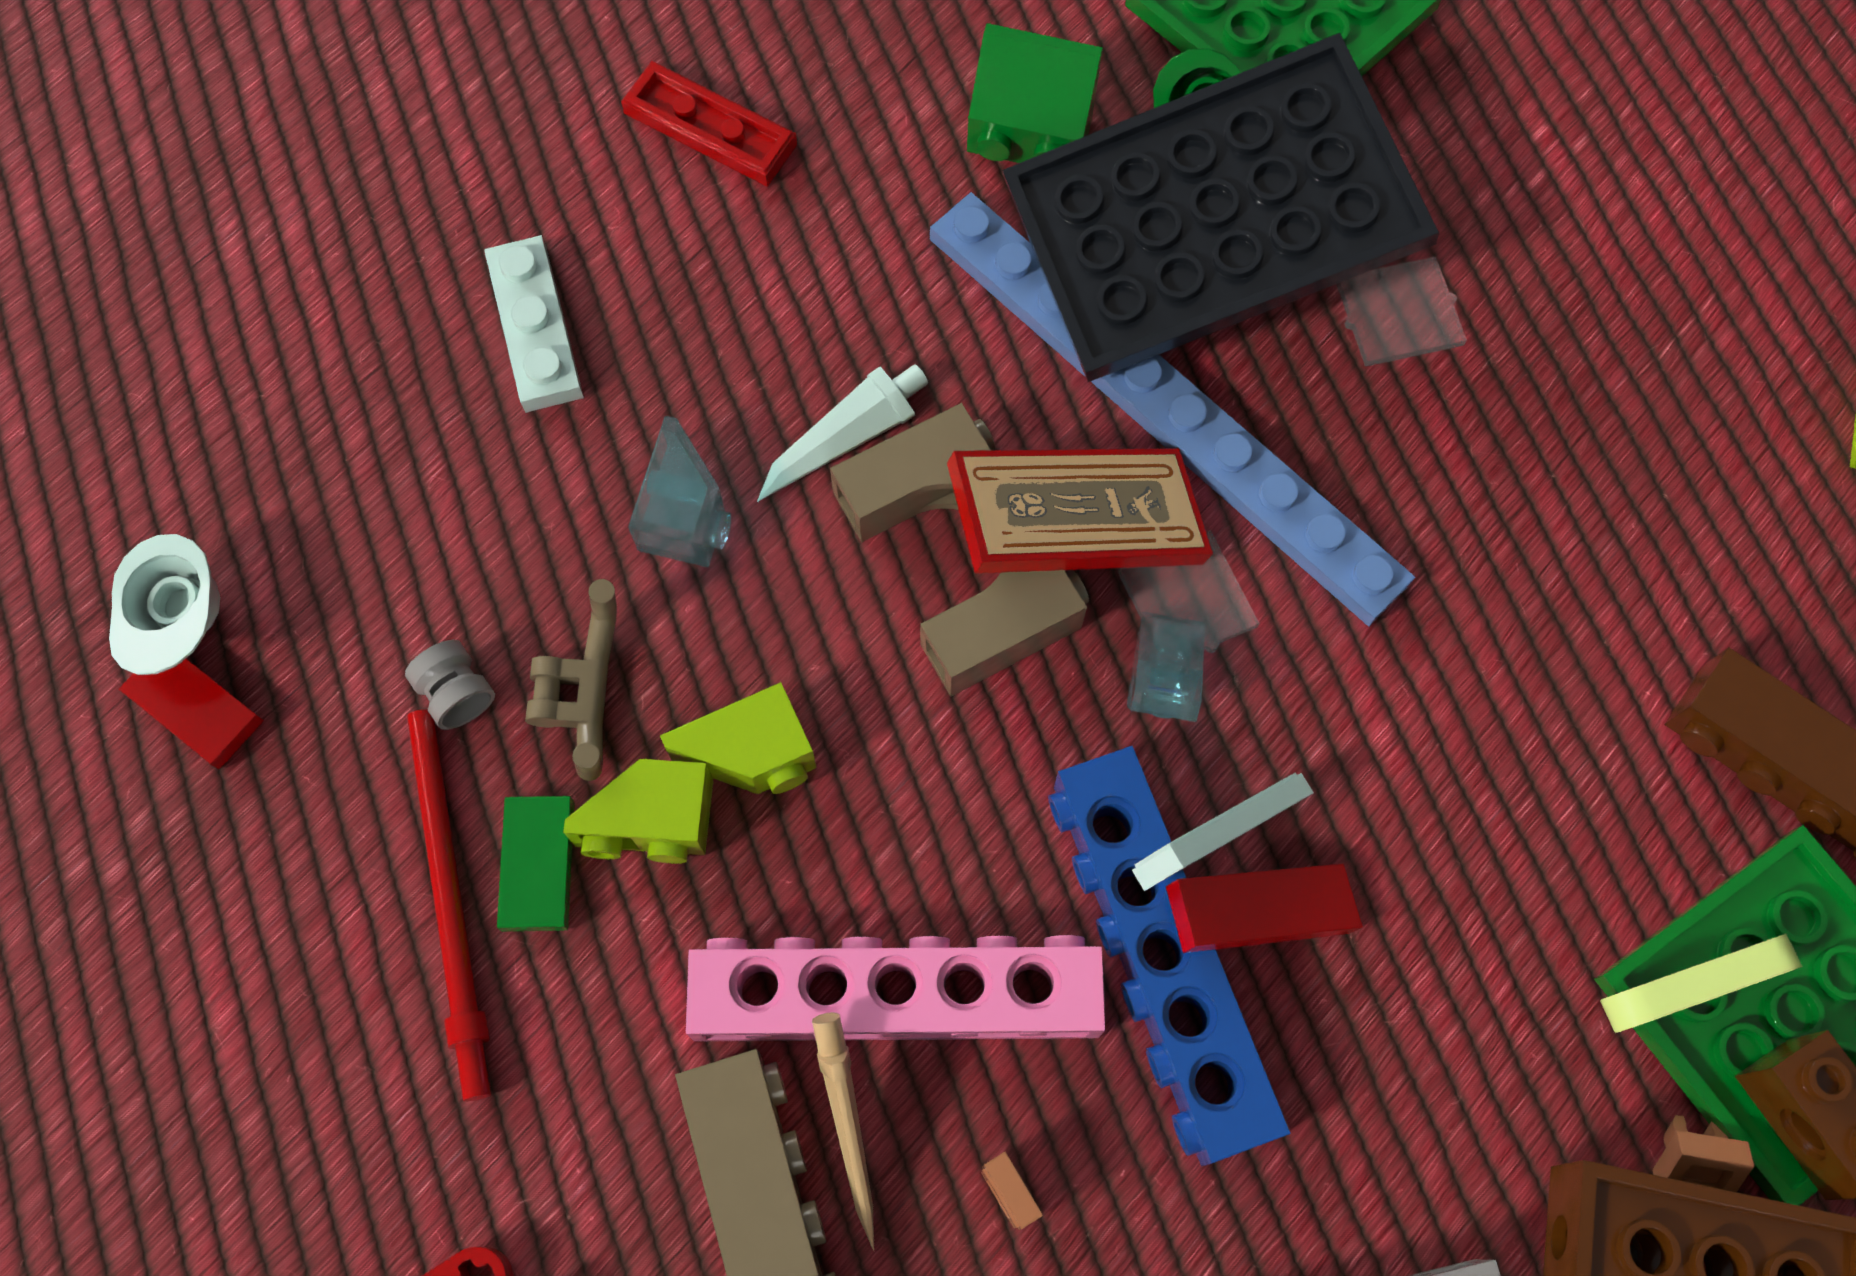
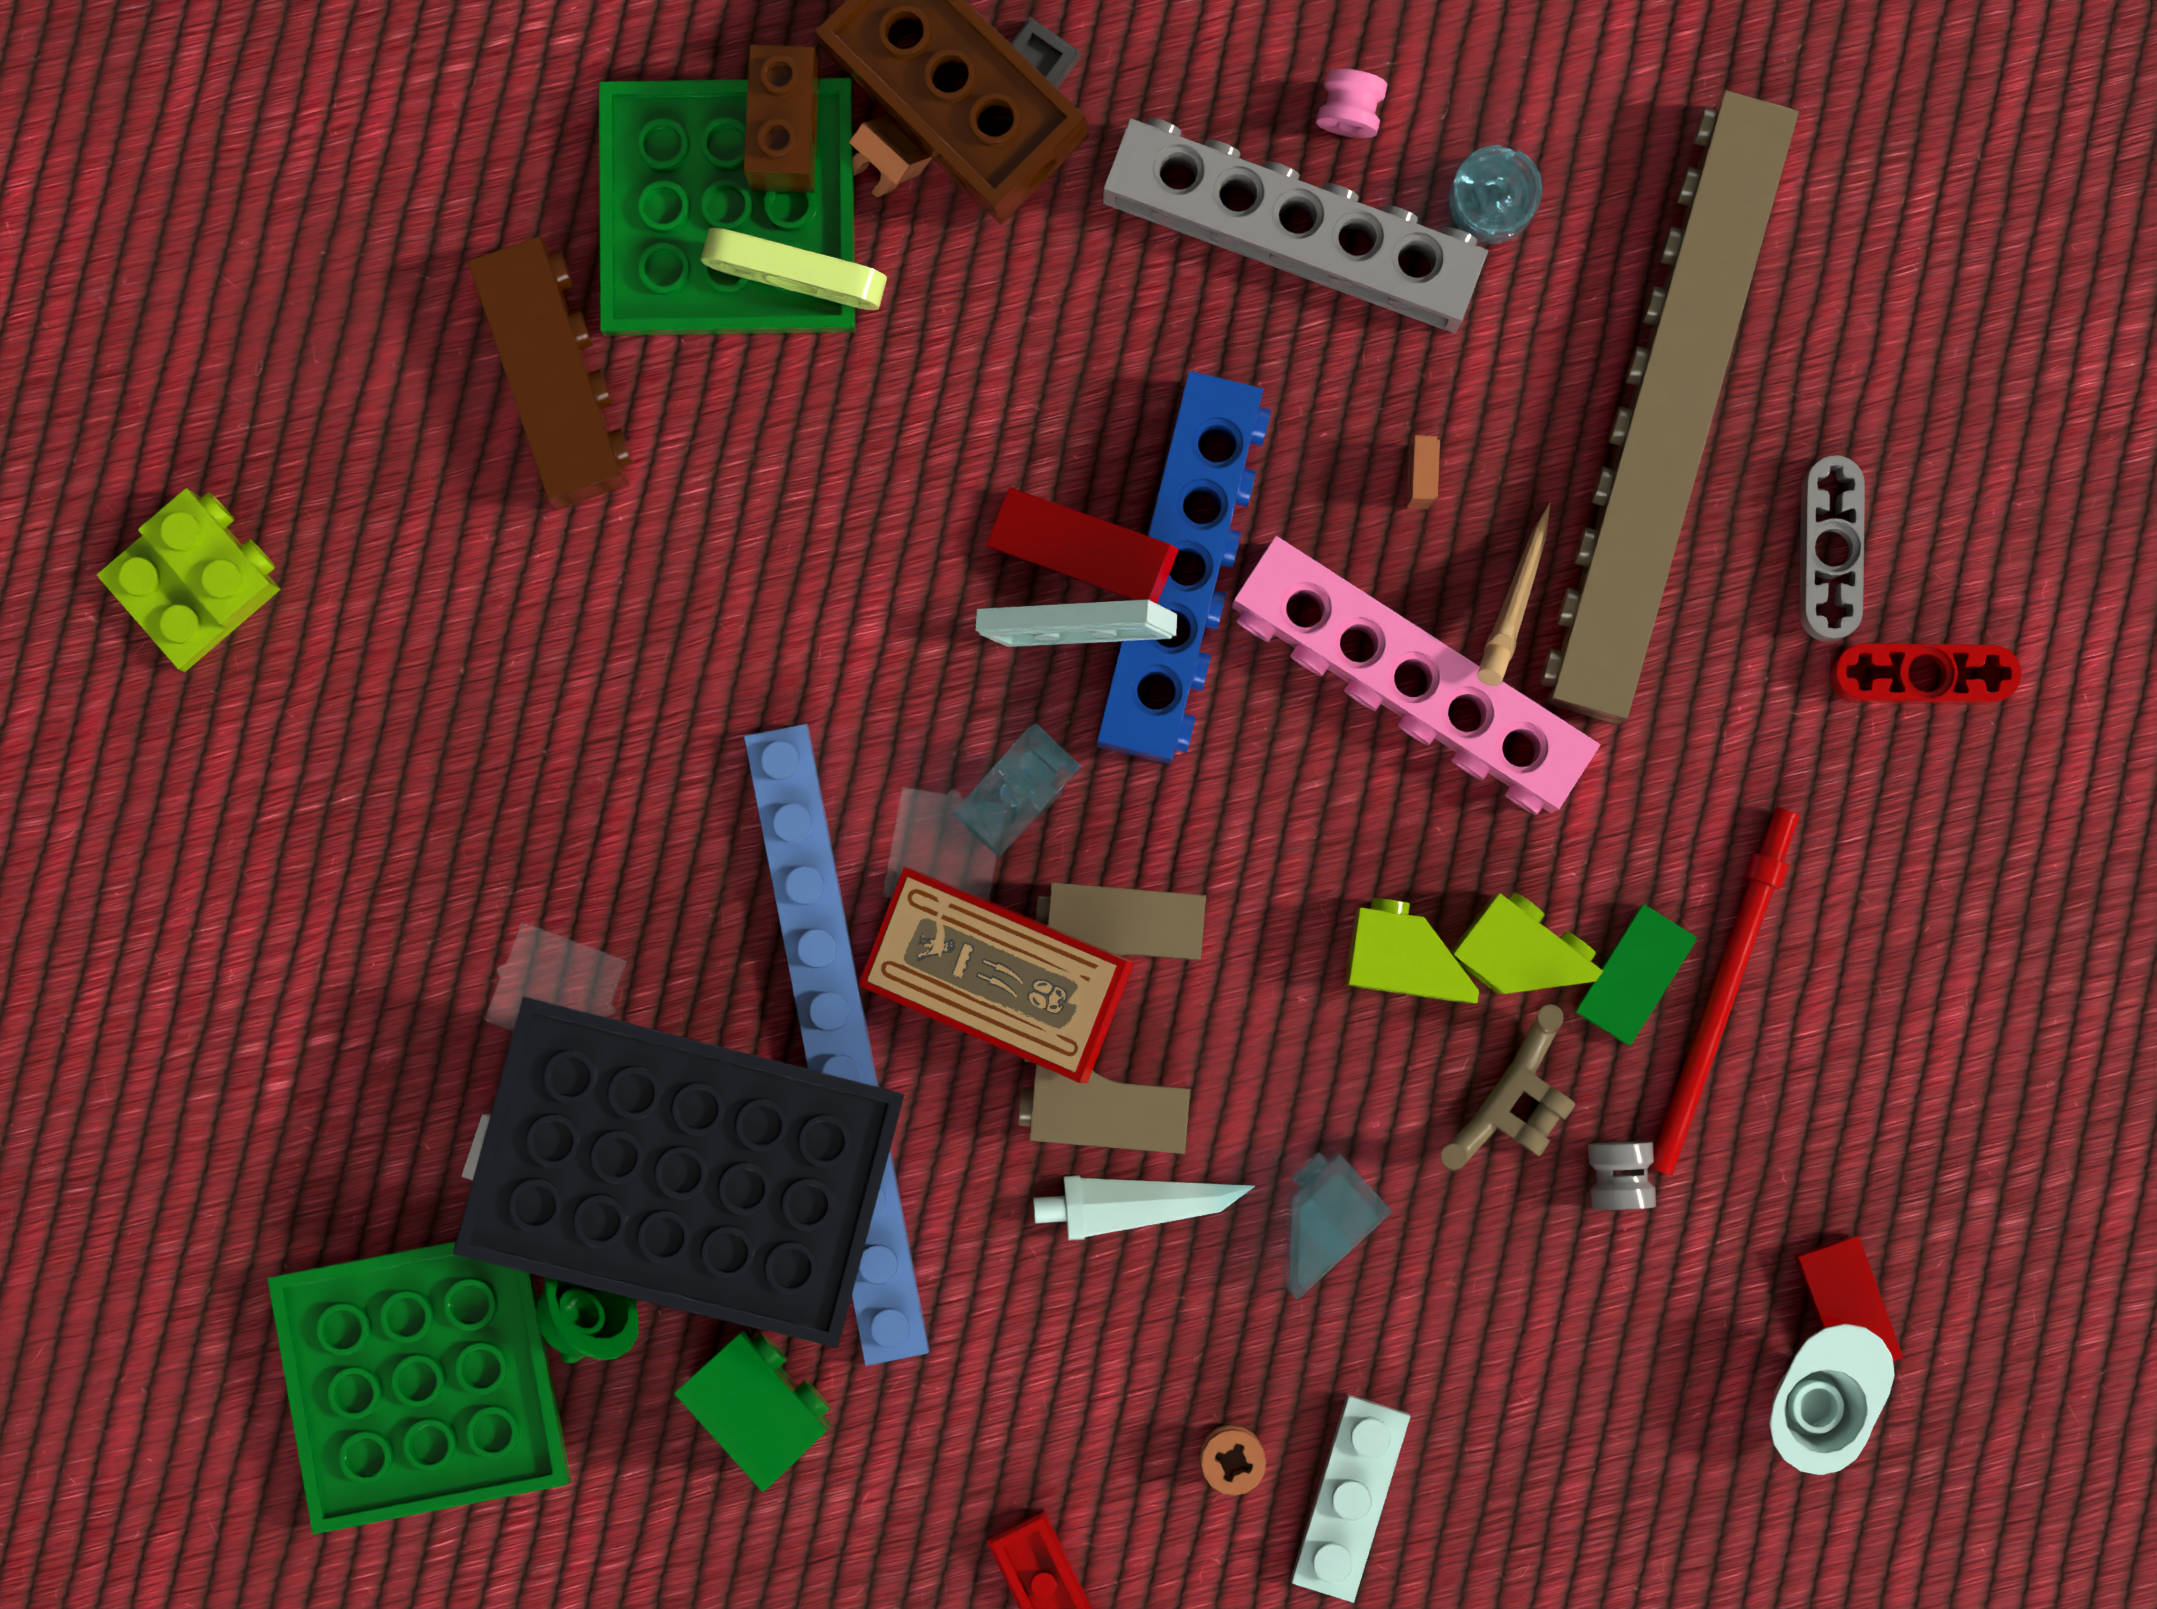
camera: 145 degrees left, 15 degrees up
(650, 304) = (1226, 1445): none -> nougat wheel

